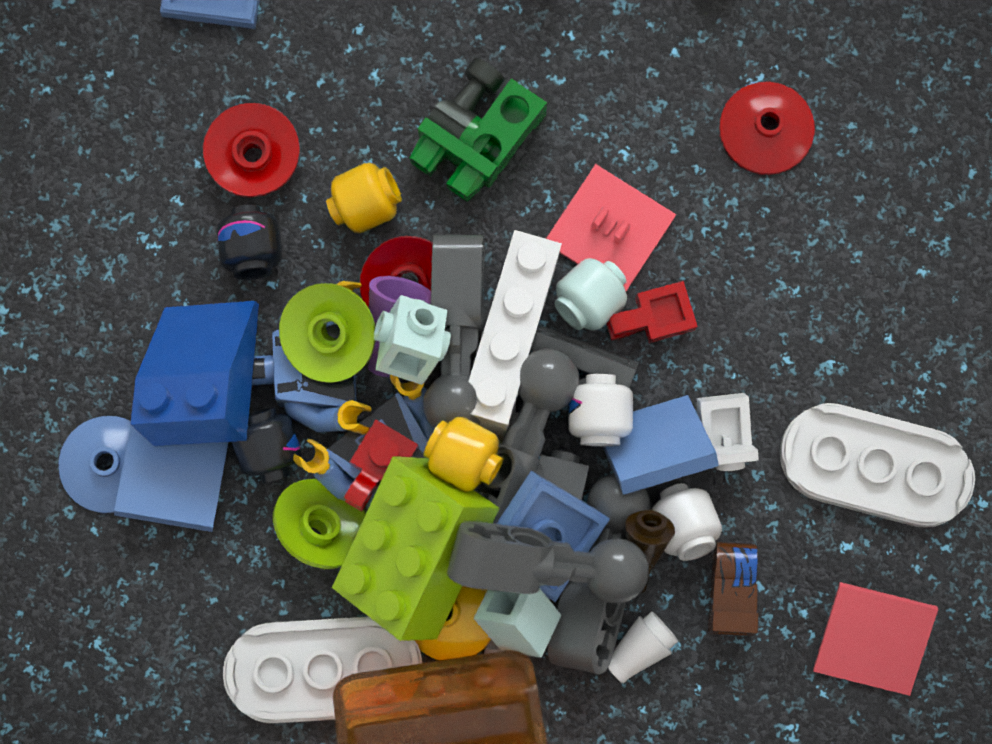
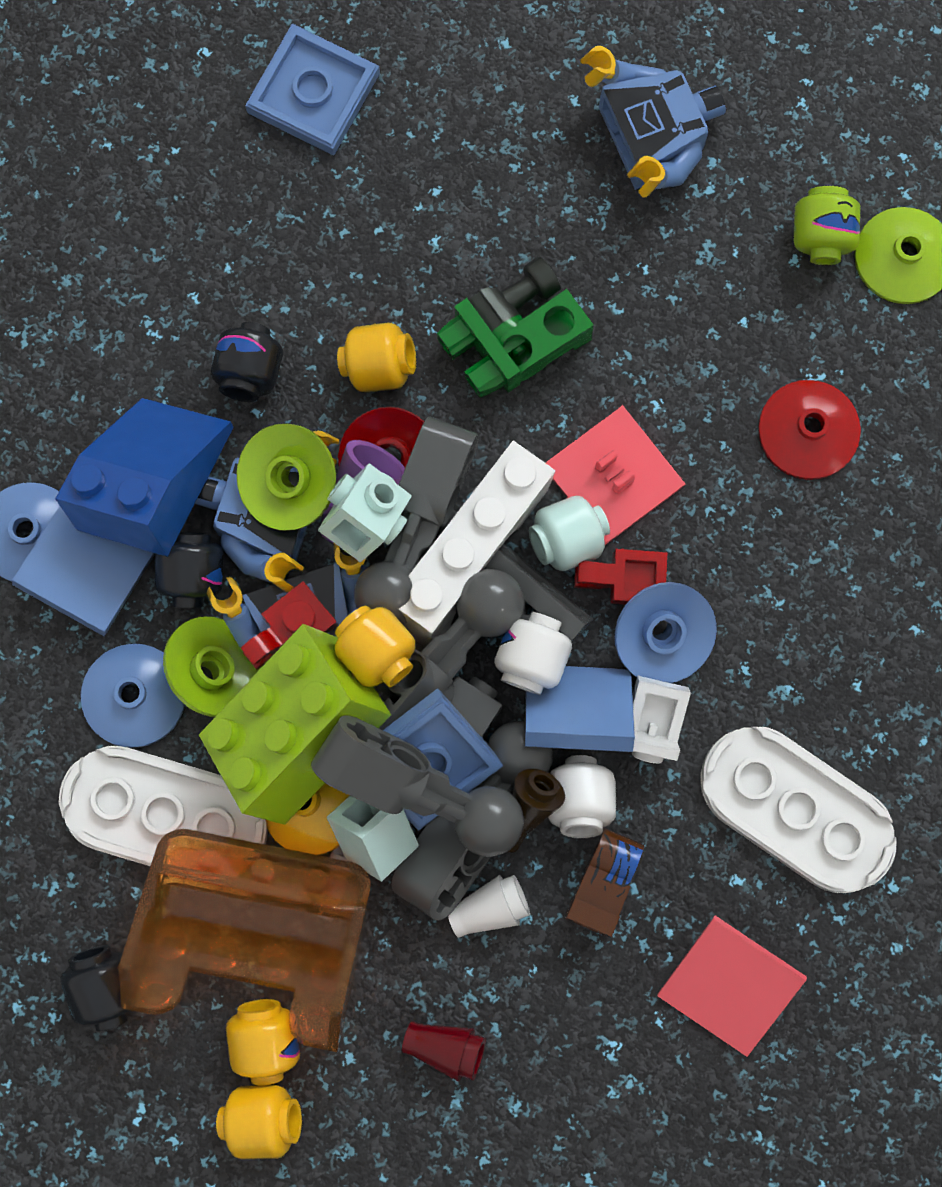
camera: 20 degrees right, 0 degrees up
(246, 128) = (276, 250): red dish -> none
(260, 601) = (137, 722): none -> medium blue dish
(725, 354) = (680, 647): none -> medium blue dish

